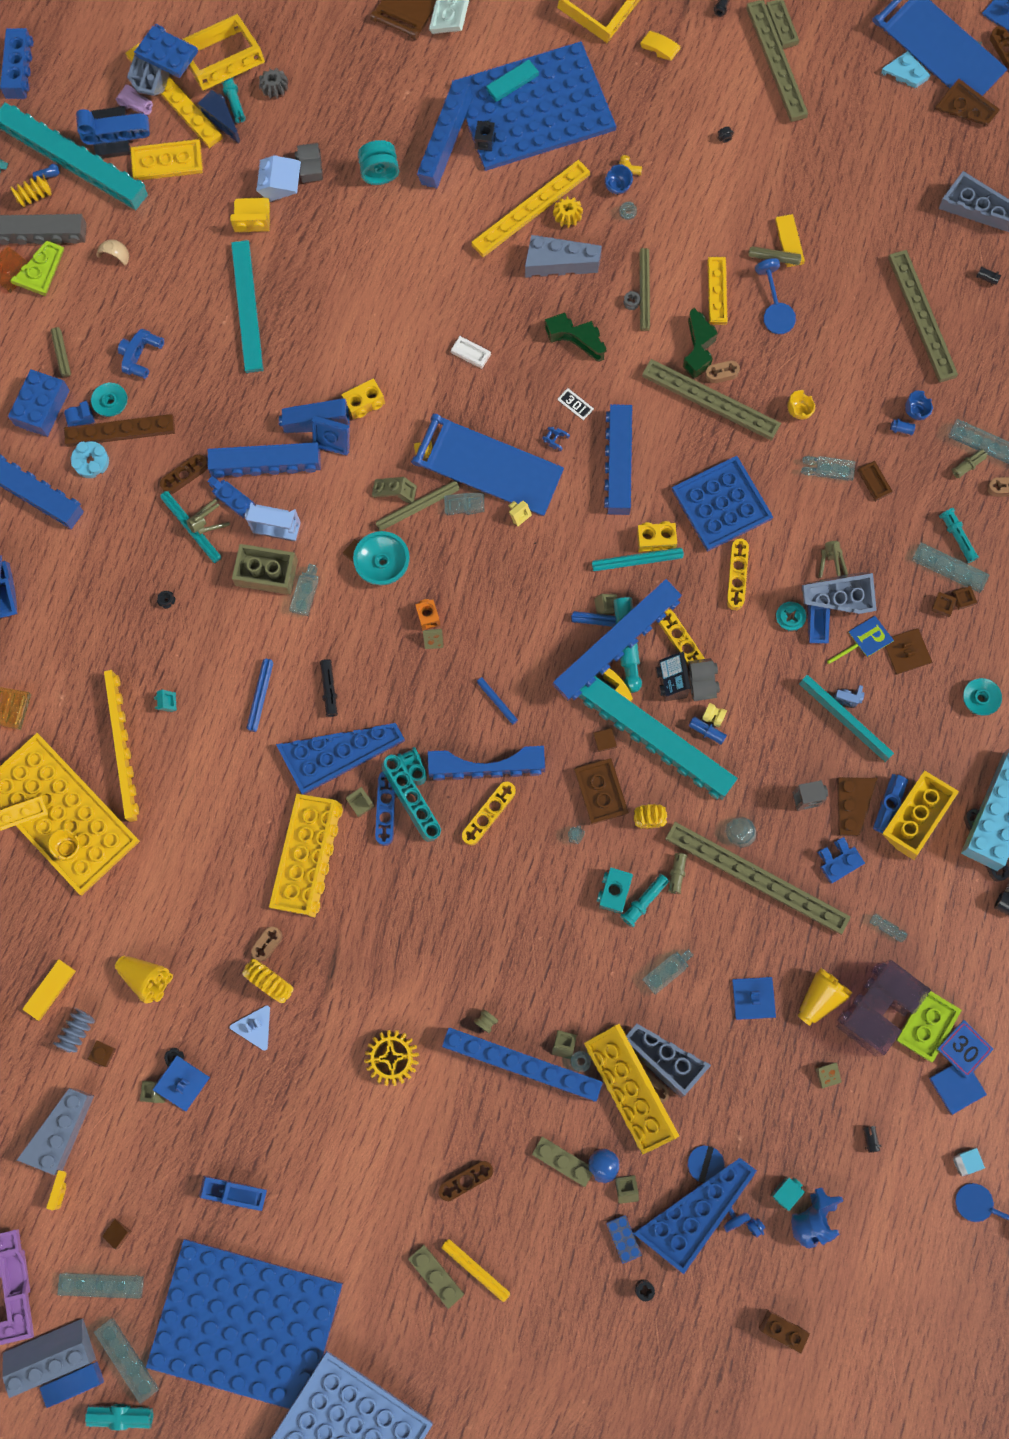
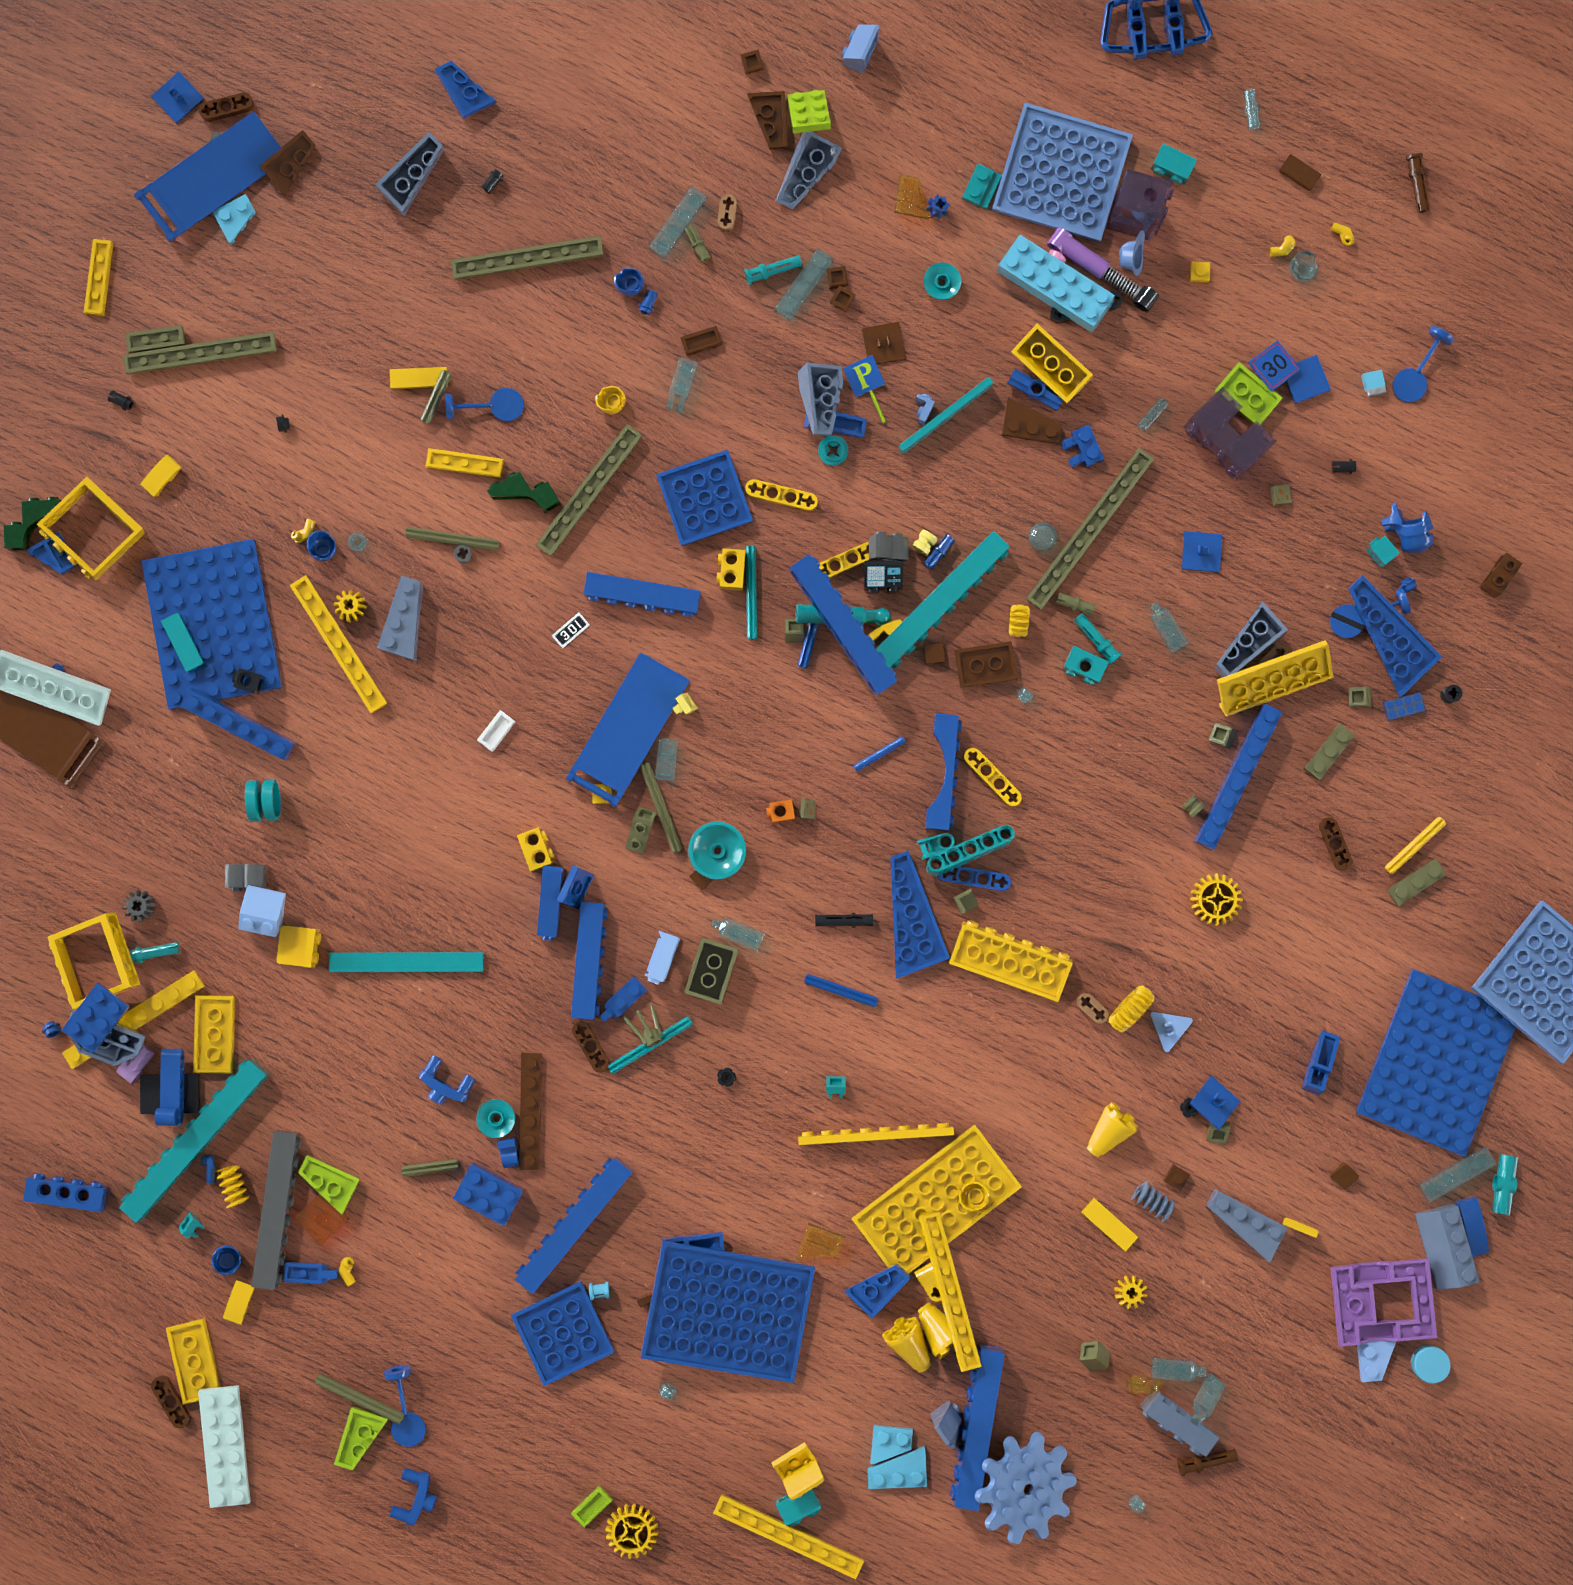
camera: 85 degrees left, 10 degrees up
(95, 467) = (548, 1149): medium azure plate -> none
(100, 1285) = (1388, 1194): clear light blue plate -> none
(114, 248) = (318, 1099): tan helmet -> none
(217, 112) = (164, 972): dark blue slope -> none
(558, 432) = (611, 660): blue piece -> none
(576, 1066) = (1234, 722): clear light blue plate -> none
(584, 335) = (499, 609): dark green arch -> none
(604, 1165) = (1337, 714): blue hair -> none
(722, 372) = (554, 474): medium nougat beam -> none
(810, 795) = (1020, 464): dark grey brick -> none
(822, 997) = (1211, 487): yellow cone -> none
(833, 552) = (772, 396): olive plant -> none

